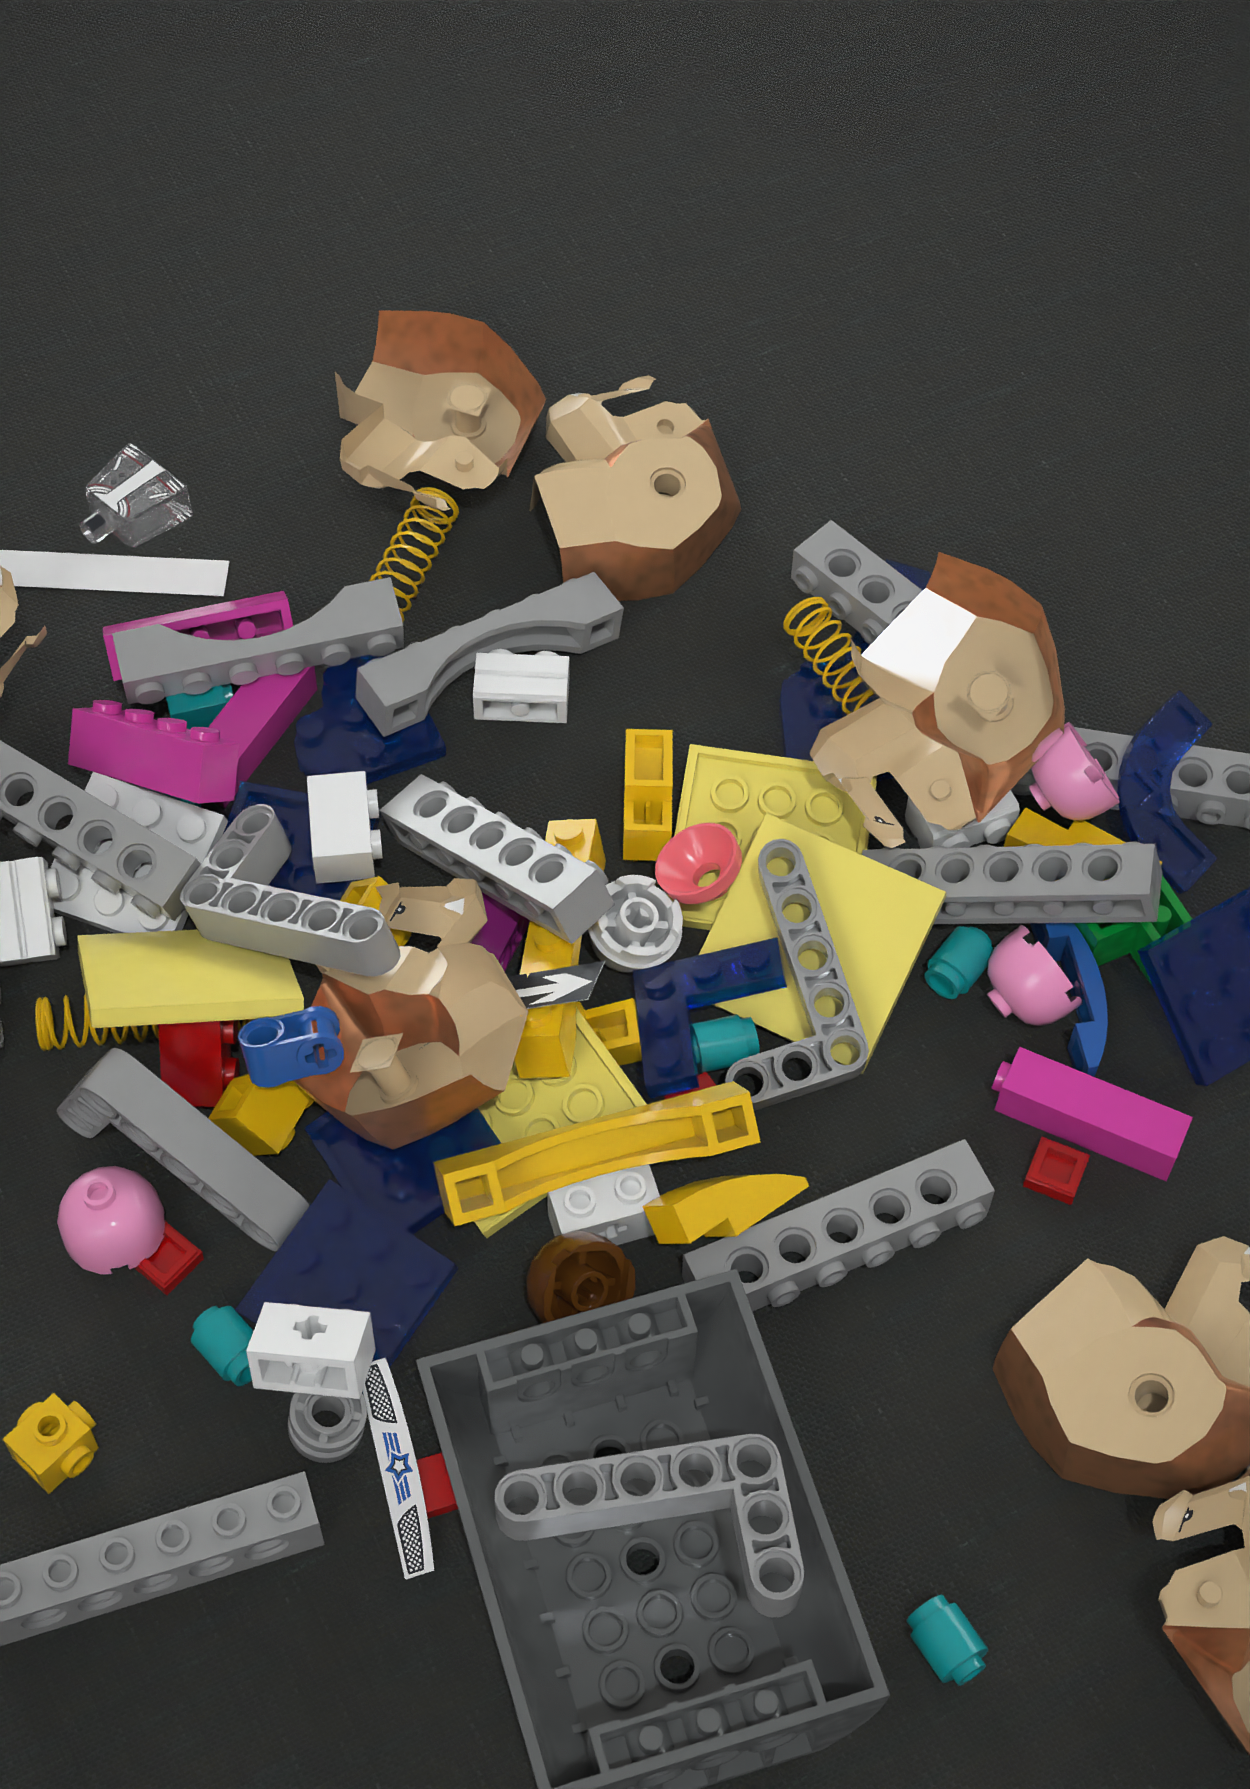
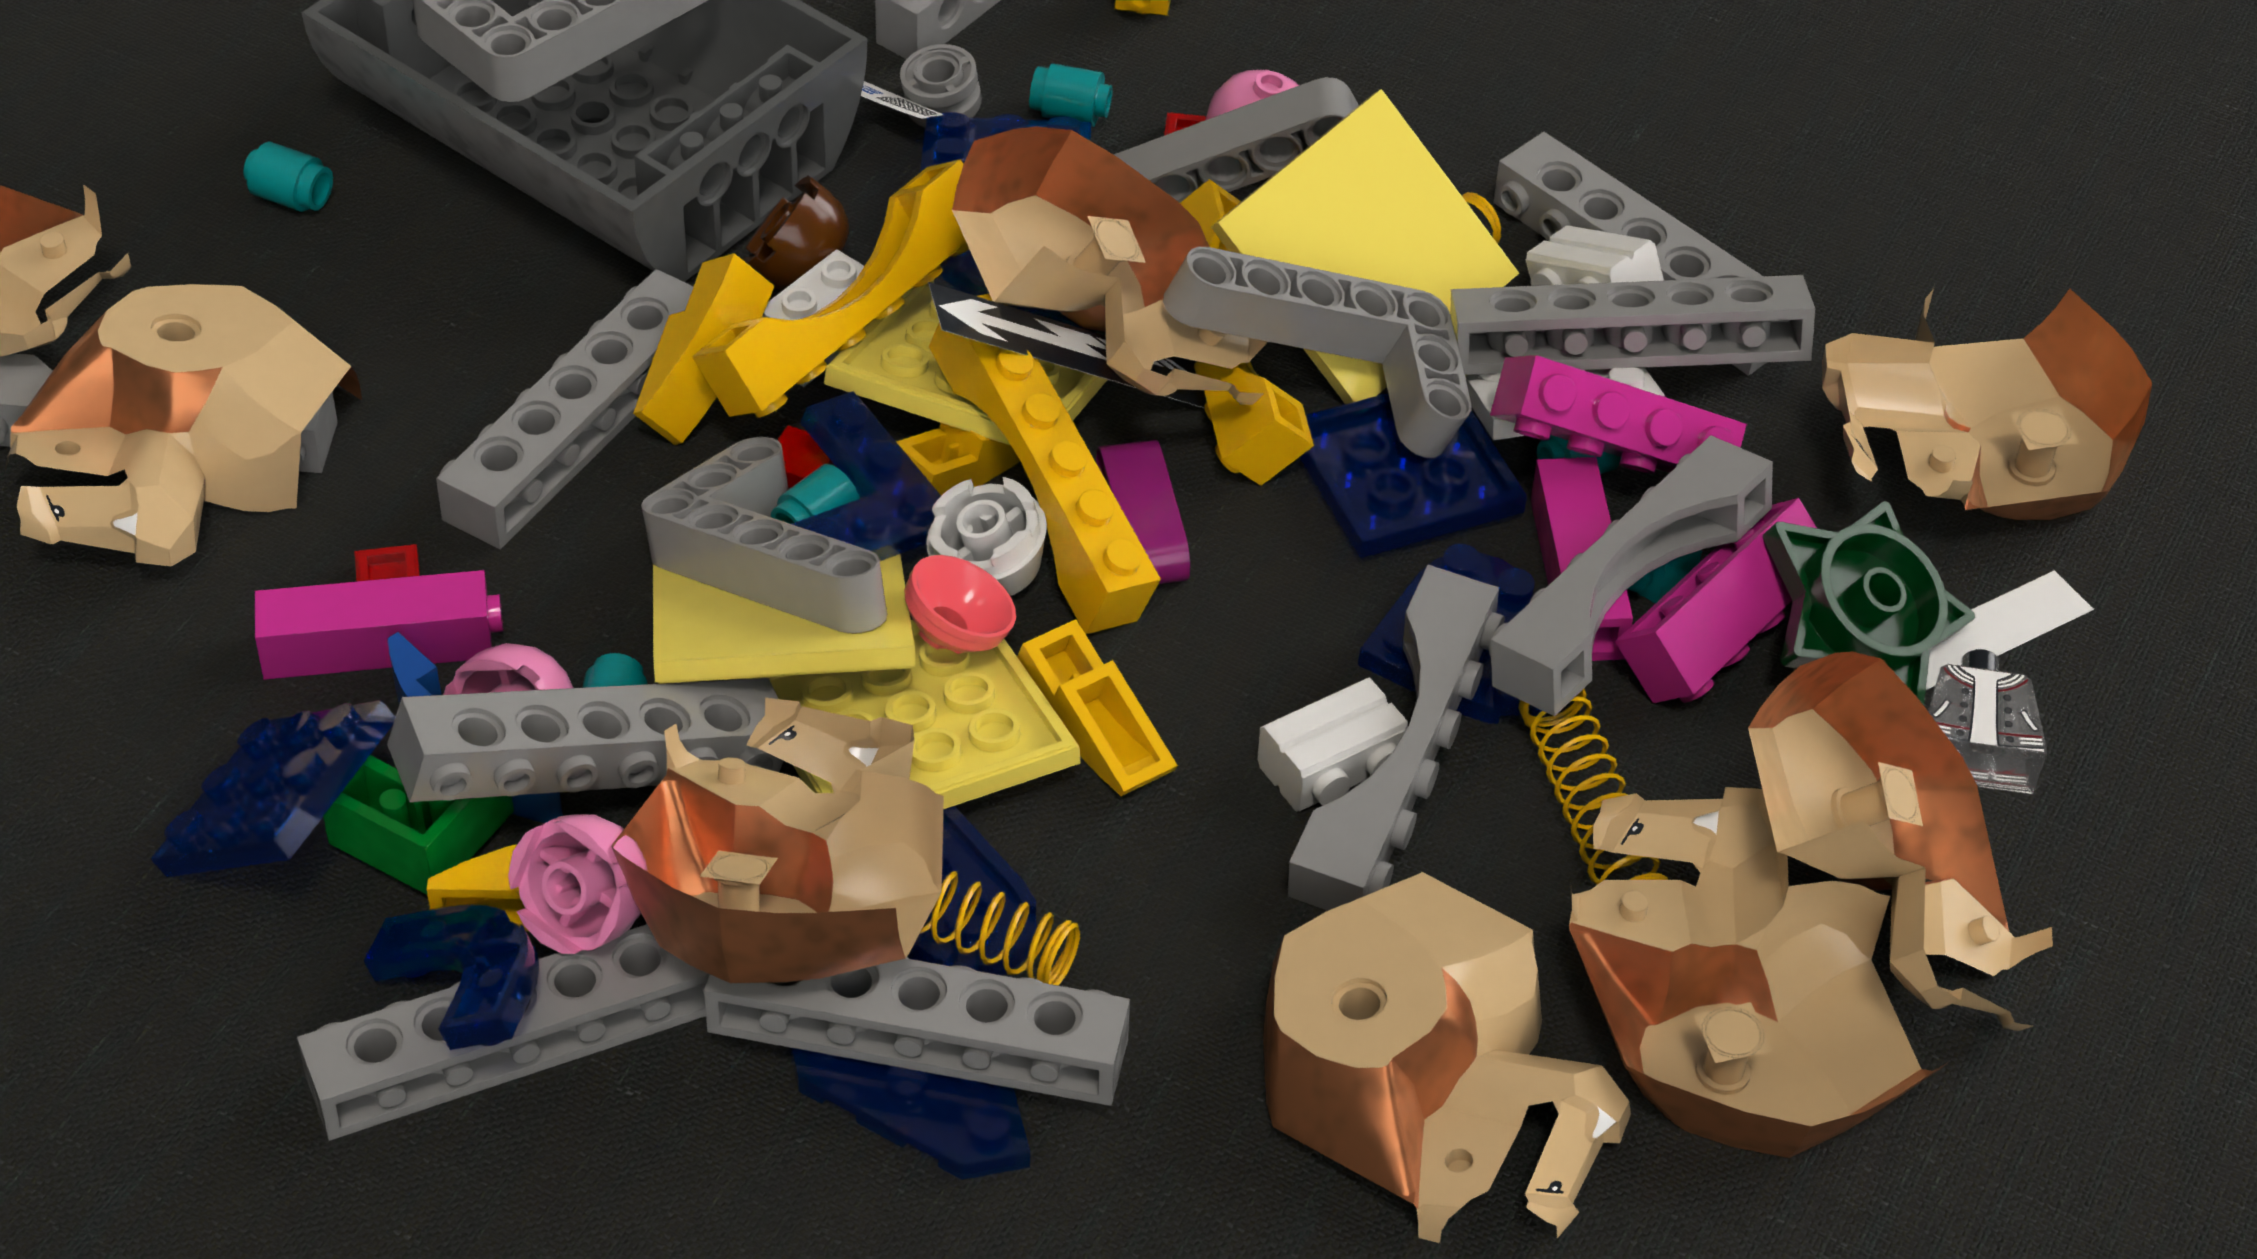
camera: 145 degrees right, 10 degrees down
(124, 579) = (1863, 595): none -> dark green plate
(287, 1049) = (1195, 202): blue piece -> none
(292, 425) = (1884, 801): none -> piece
(311, 1350) = (982, 75): white brick -> none
(341, 827) = (1369, 471): white brick -> none
(505, 860) = (1171, 475): light grey brick -> none

